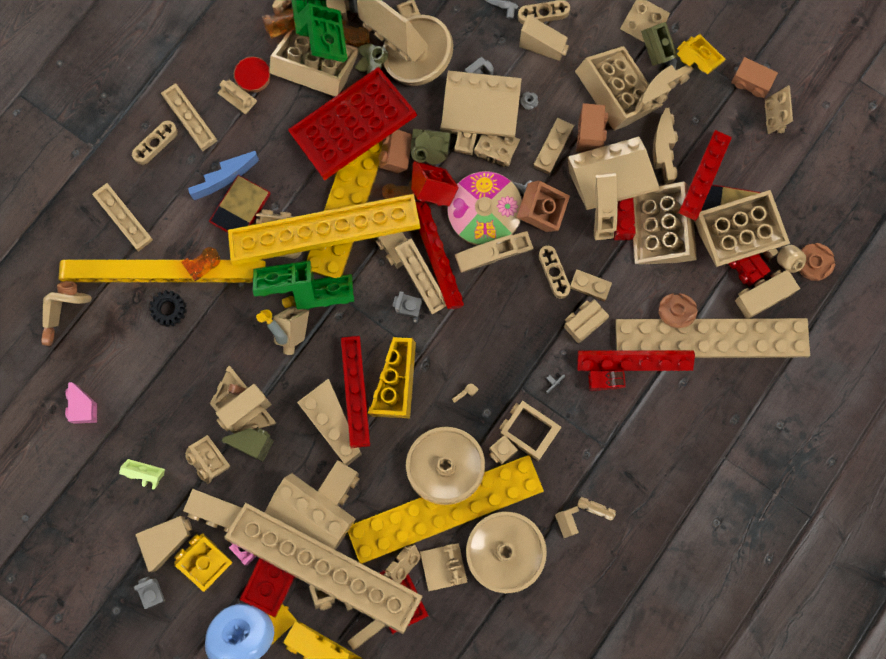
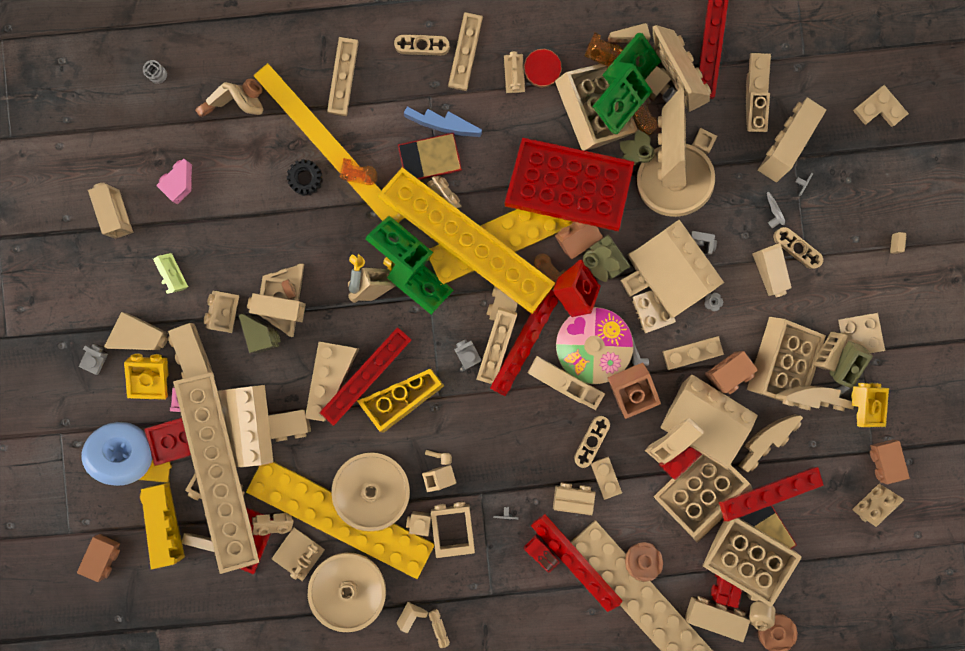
camera: 45 degrees right, 10 degrees up
(53, 473) = (110, 210): none -> tan window
(481, 405) = (443, 478): none -> tan brick
(640, 56) = (828, 357): none -> tan slope

